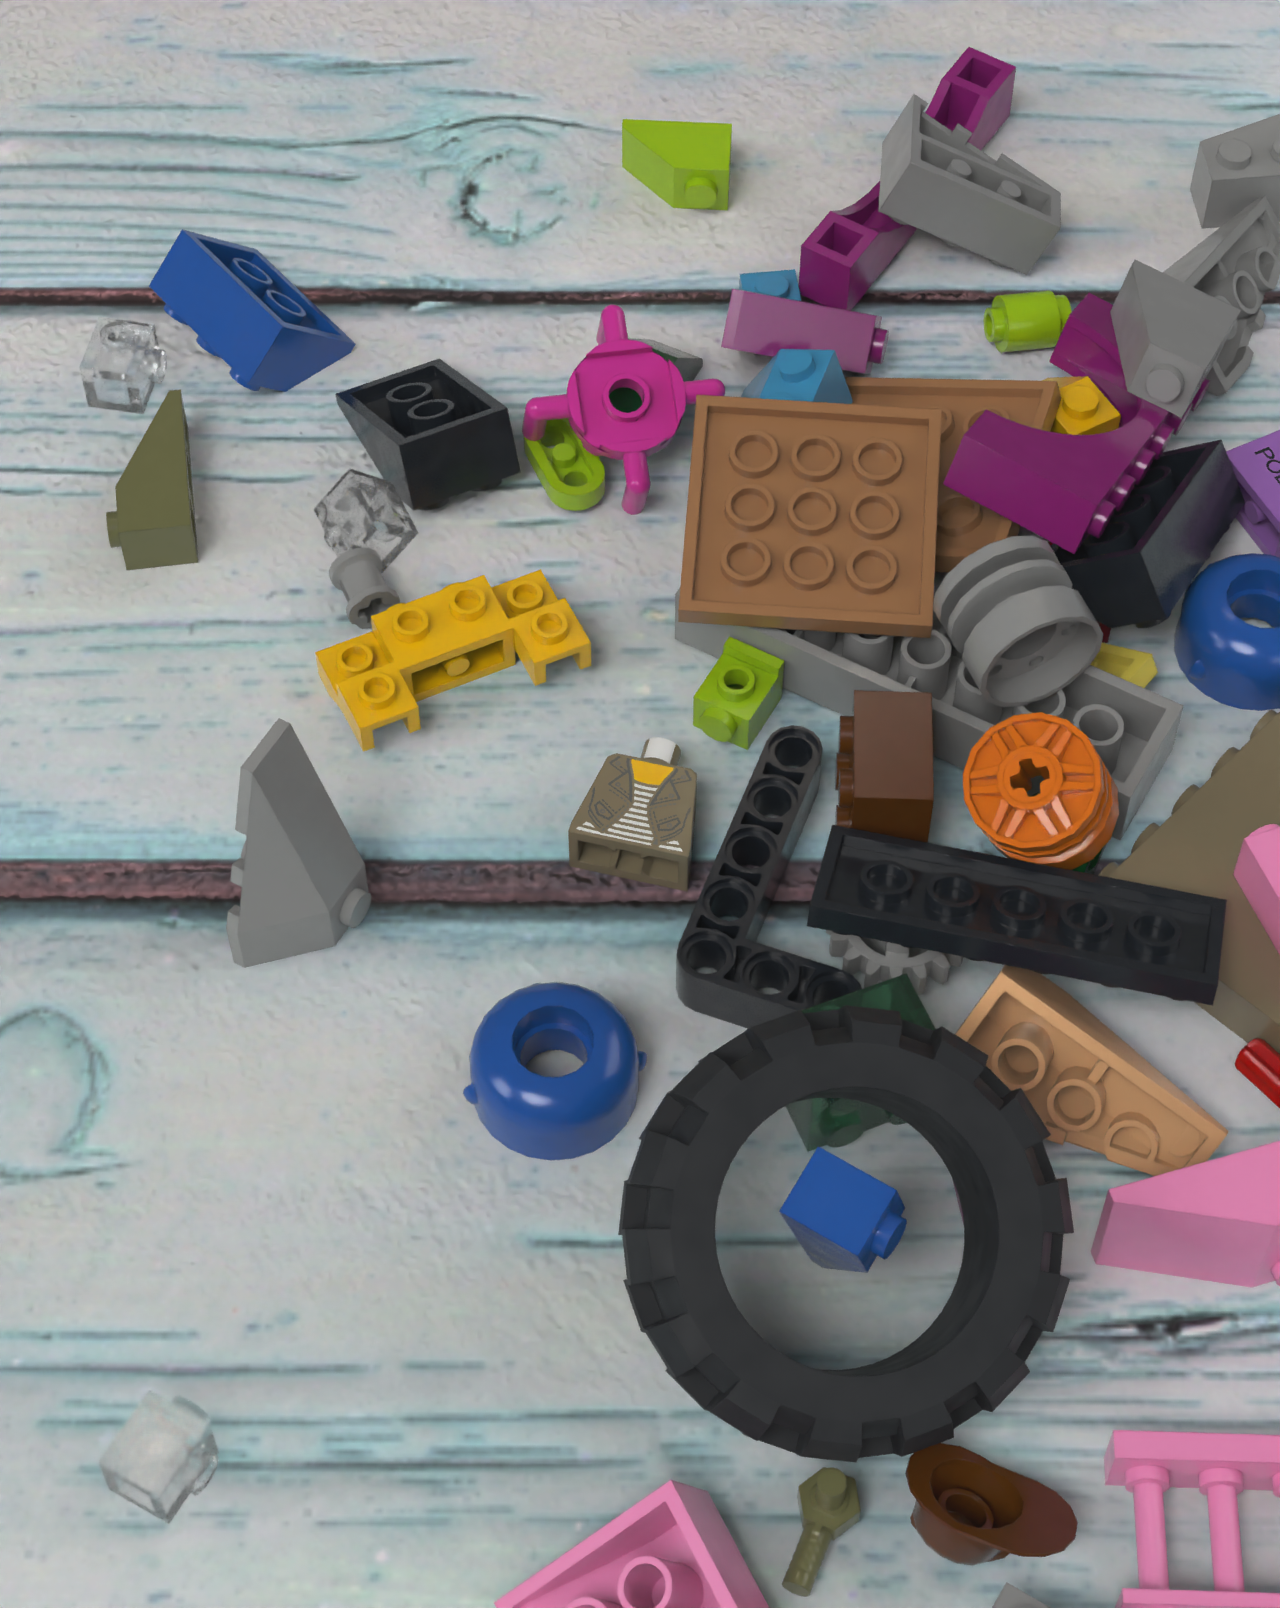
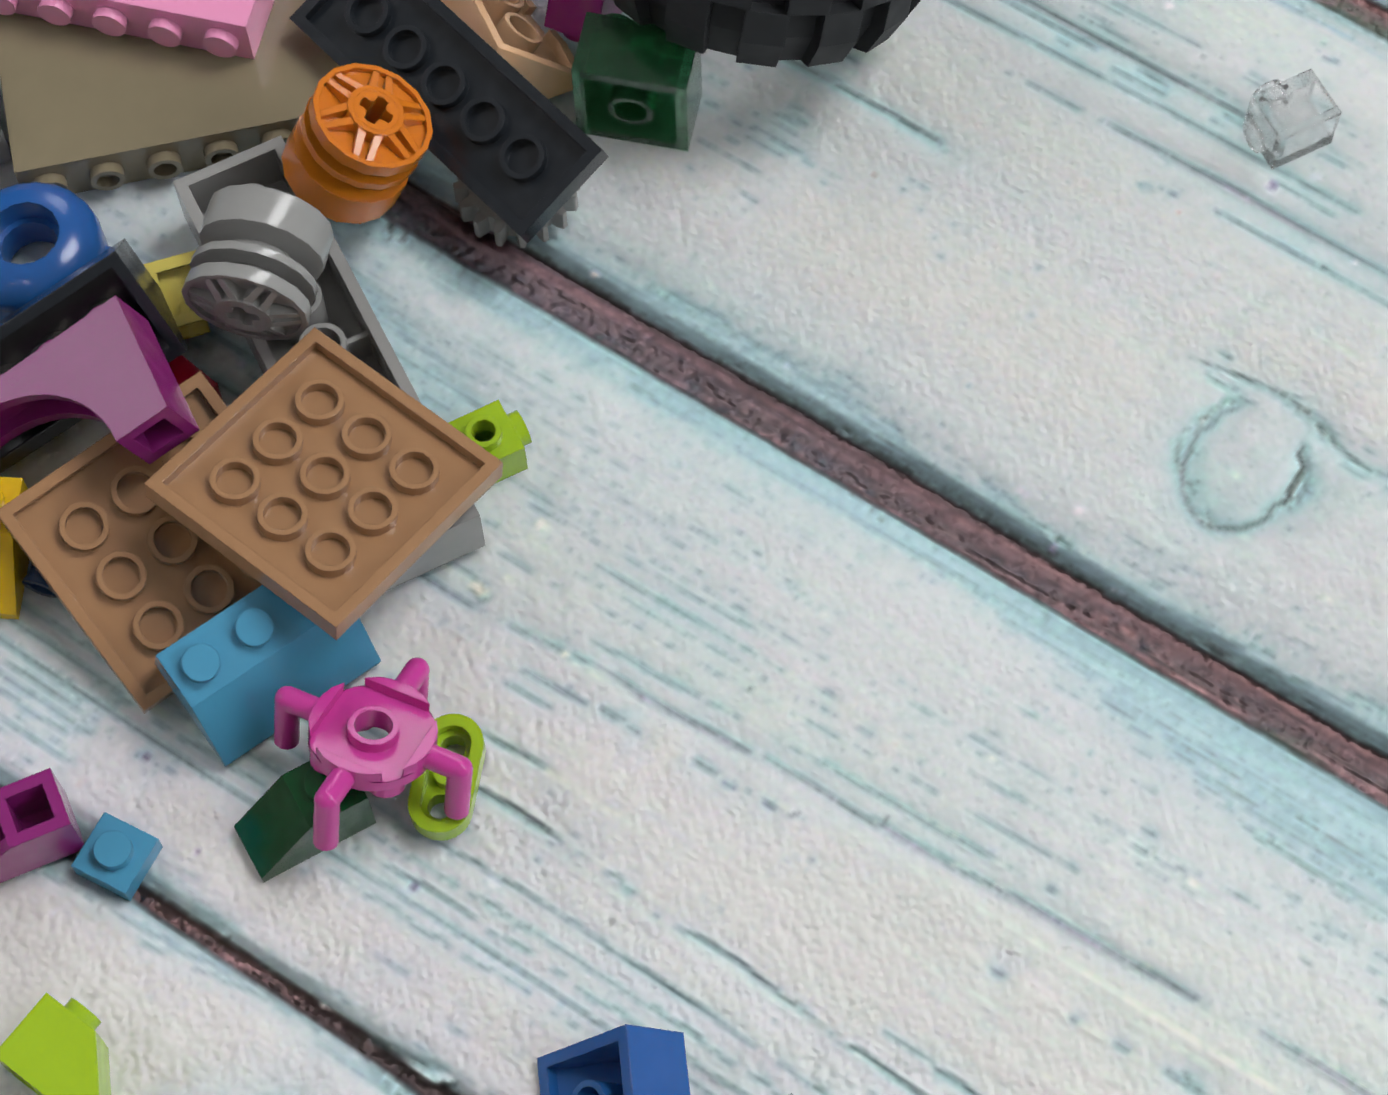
camera: 145 degrees left, 10 degrees up
(156, 495) = (840, 962): olive slope -> none
(297, 862) = (960, 455): light grey wedge -> none
(360, 579) = (716, 742): light grey bush -> none
(363, 514) = (674, 799): clear brick -> none
(432, 433) = (545, 888): black slope -> none
(447, 643) = (682, 639): yellow bracket -> none
(554, 1114) = (839, 263): blue piece -> none
(638, 818) = (639, 385): dark tan torso -> none
(748, 895) = (599, 270): black beam -> none
(771, 323) = (143, 758): magenta slope -> none
(886, 764) = (437, 274): reddish brown brick -> none

